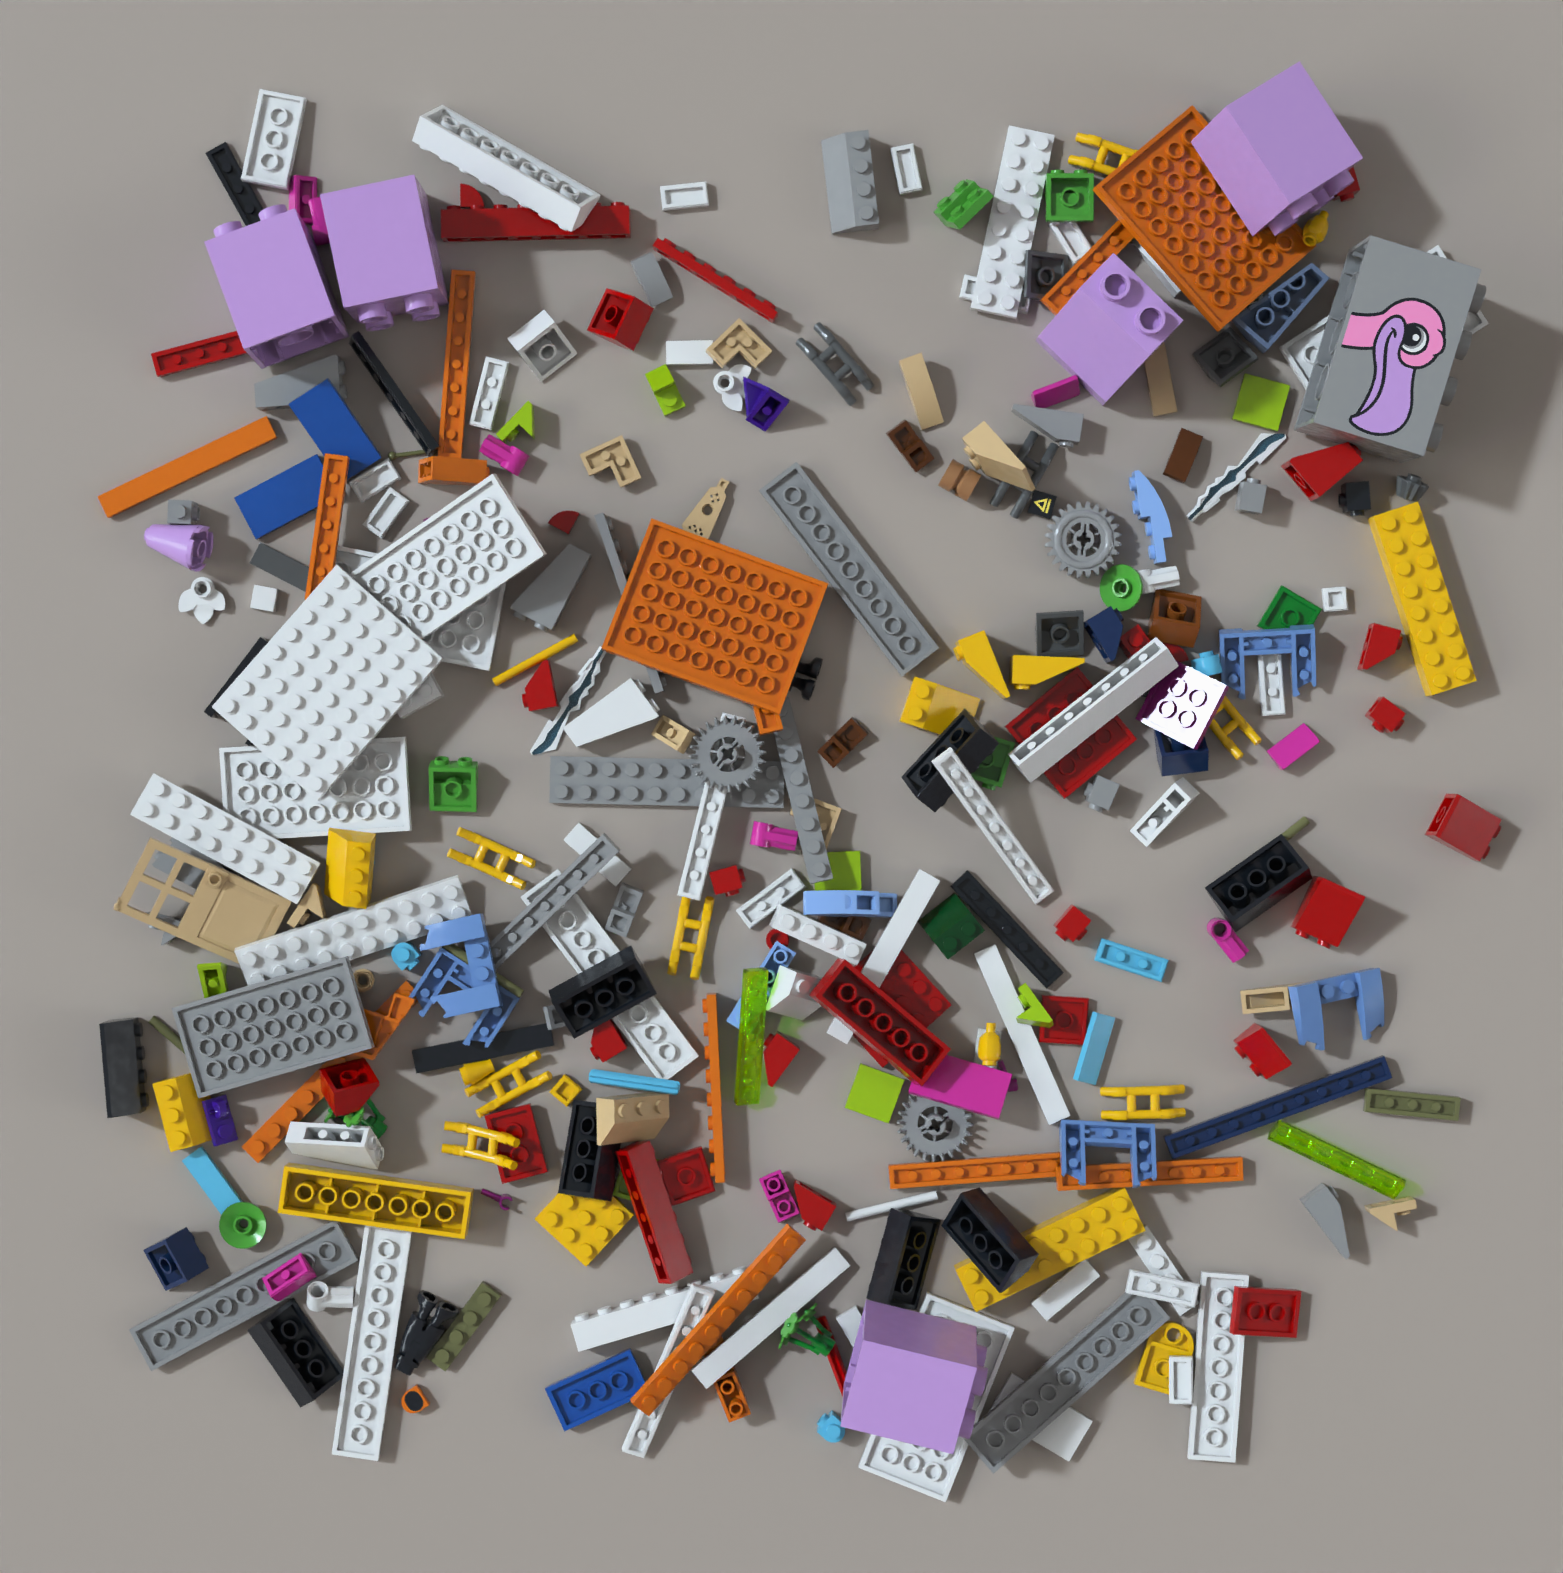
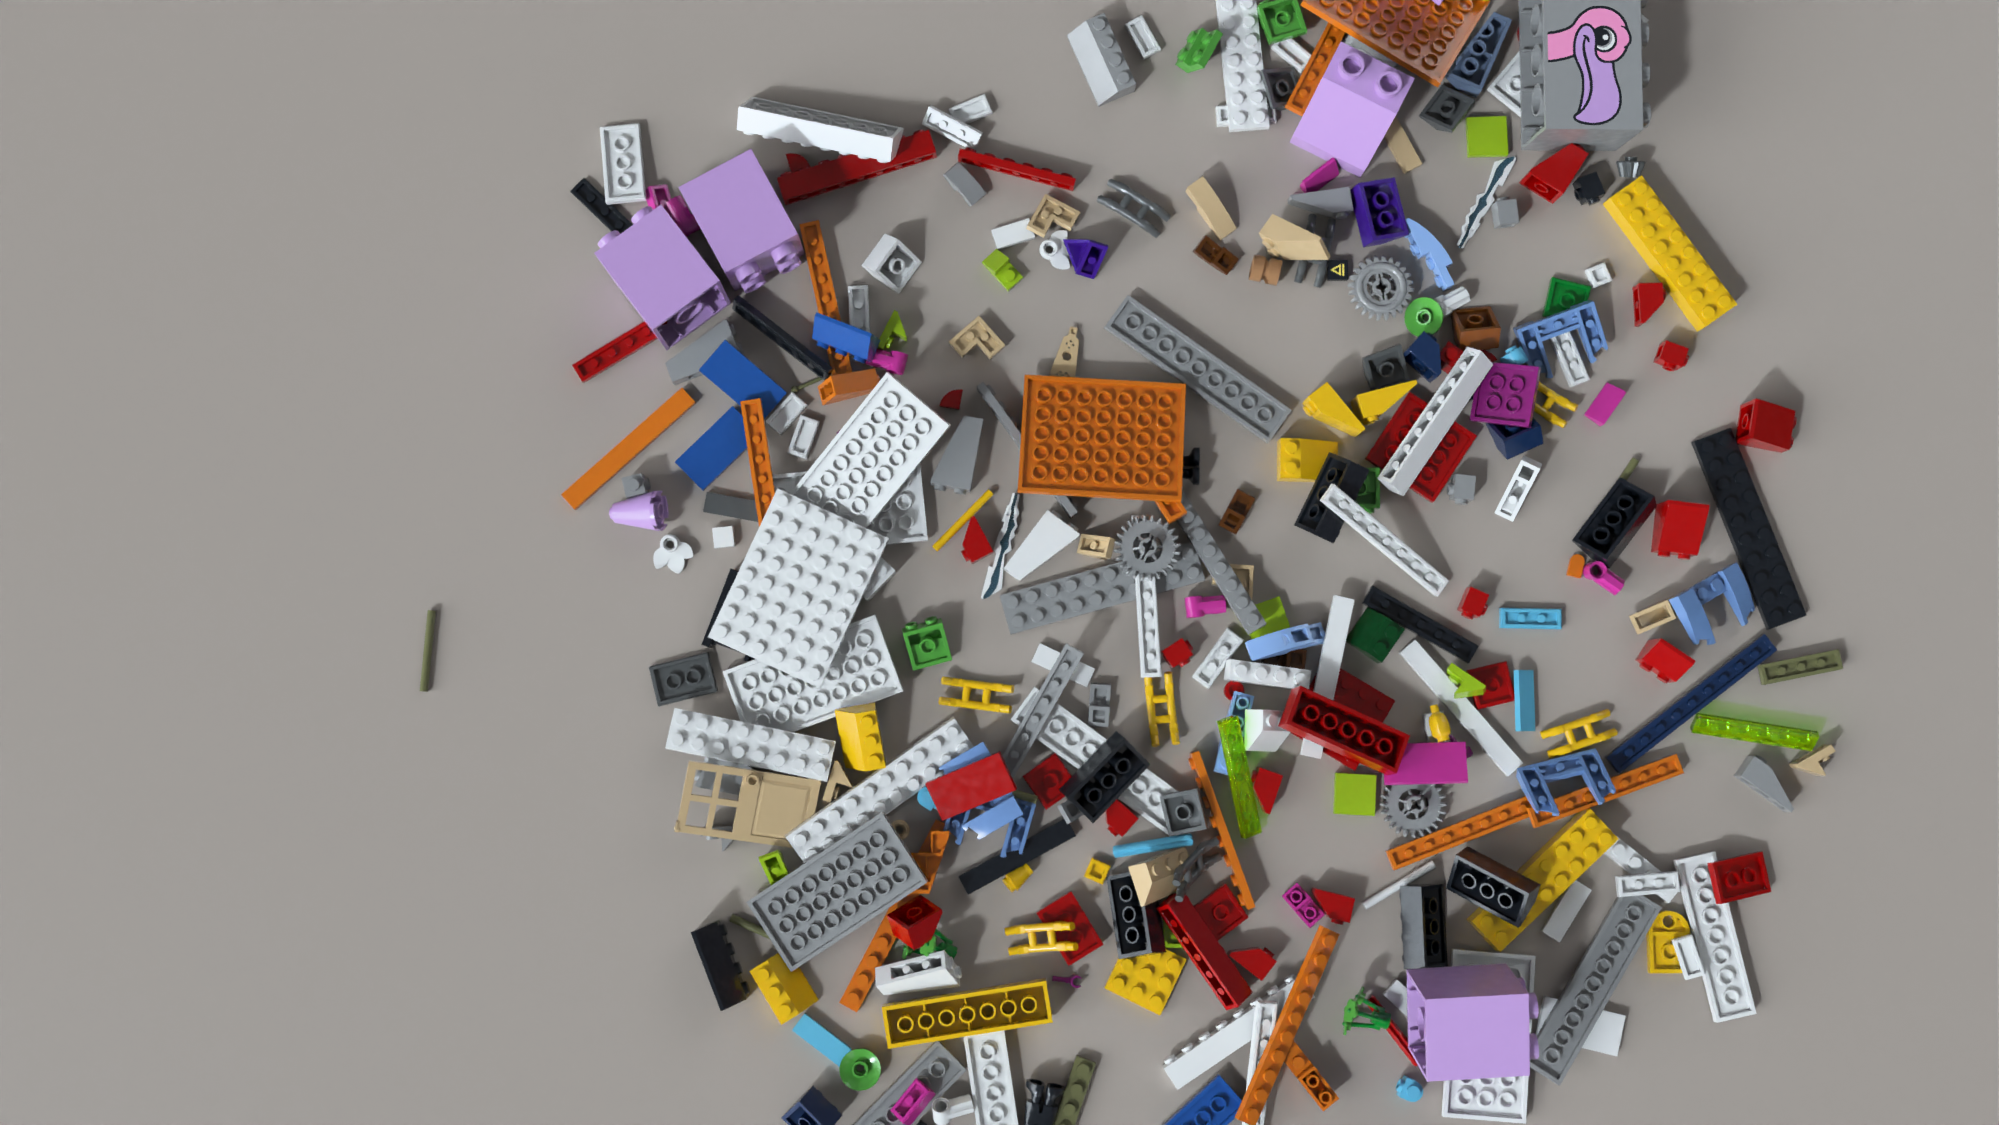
camera: 25 degrees left, 5 degrees down
(174, 742) = (683, 679): none -> dark grey tile
(219, 1120) = (814, 986): dark purple hinge -> none
(452, 957) = (971, 786): none -> red tile
(461, 418) = (844, 338): none -> blue slope
(503, 1097) = (1060, 878): yellow piece -> none
(542, 974) = (1047, 780): none -> red tile
(620, 319) = (948, 223): red slope -> none
(657, 210) = (952, 128): none -> white tile
(677, 1056) = (1183, 812): none -> dark grey slope
(679, 1120) = (1201, 865): none -> dark grey piece
(706, 1238) = (1255, 960): none -> red slope
(770, 1318) = (1329, 1011): white tile -> none
(1108, 452) = (1378, 211): none -> dark purple slope
(1182, 455) = (1438, 197): reddish brown slope -> none
(1201, 917) = (1575, 566): none -> orange piece
(1407, 934) = (1748, 529): none -> black plate

